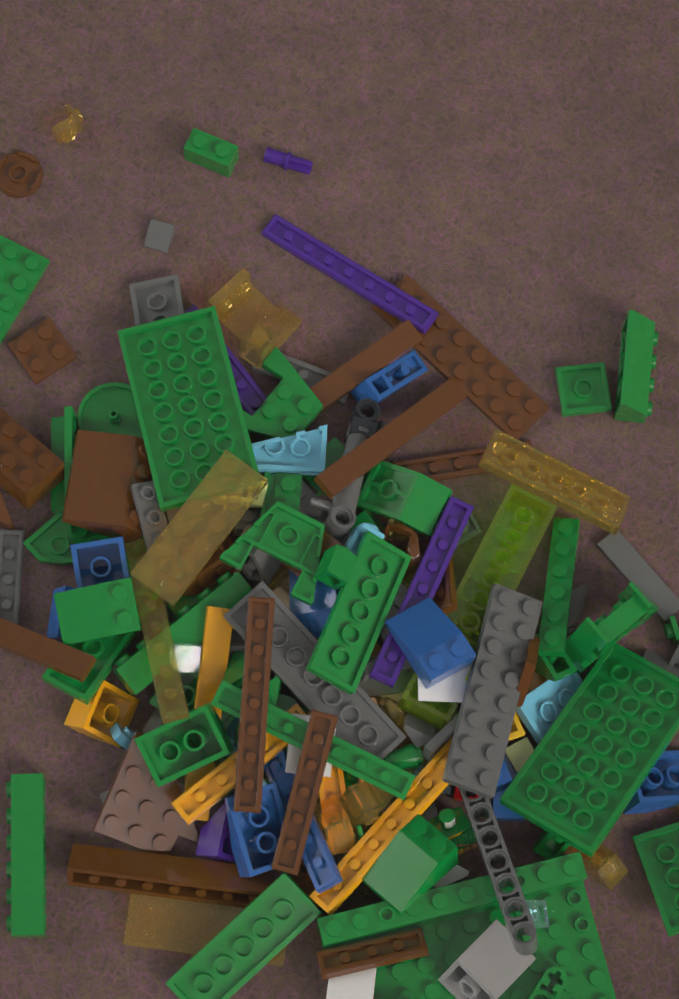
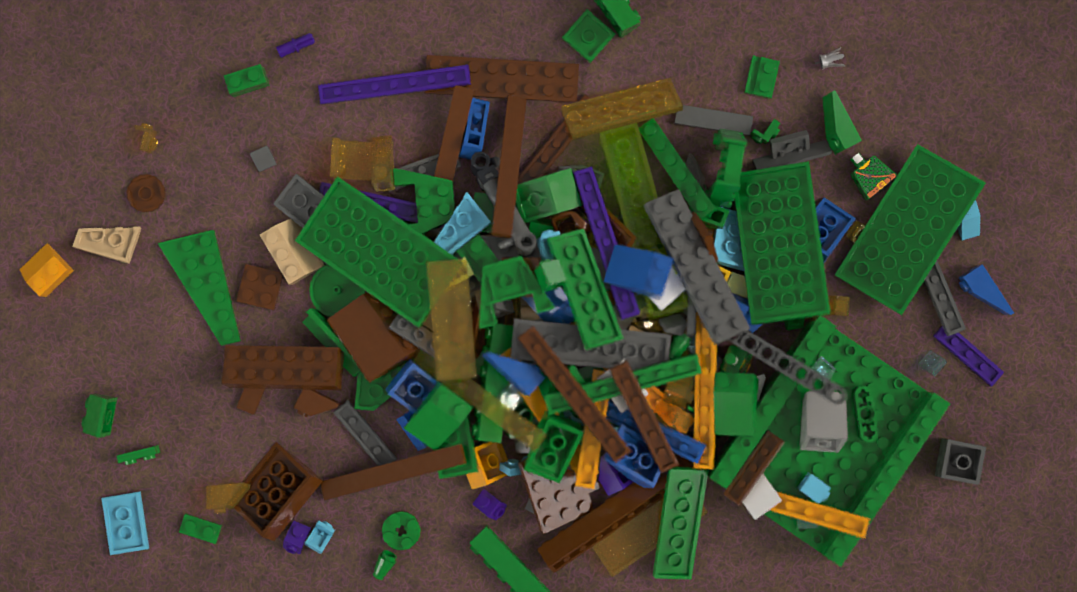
camera: 40 degrees left, 15 degrees up
(67, 759) = (490, 505): none -> dark purple bracket
(99, 347) = (290, 256): none -> tan slope
(217, 637) = (519, 374): none -> blue slope

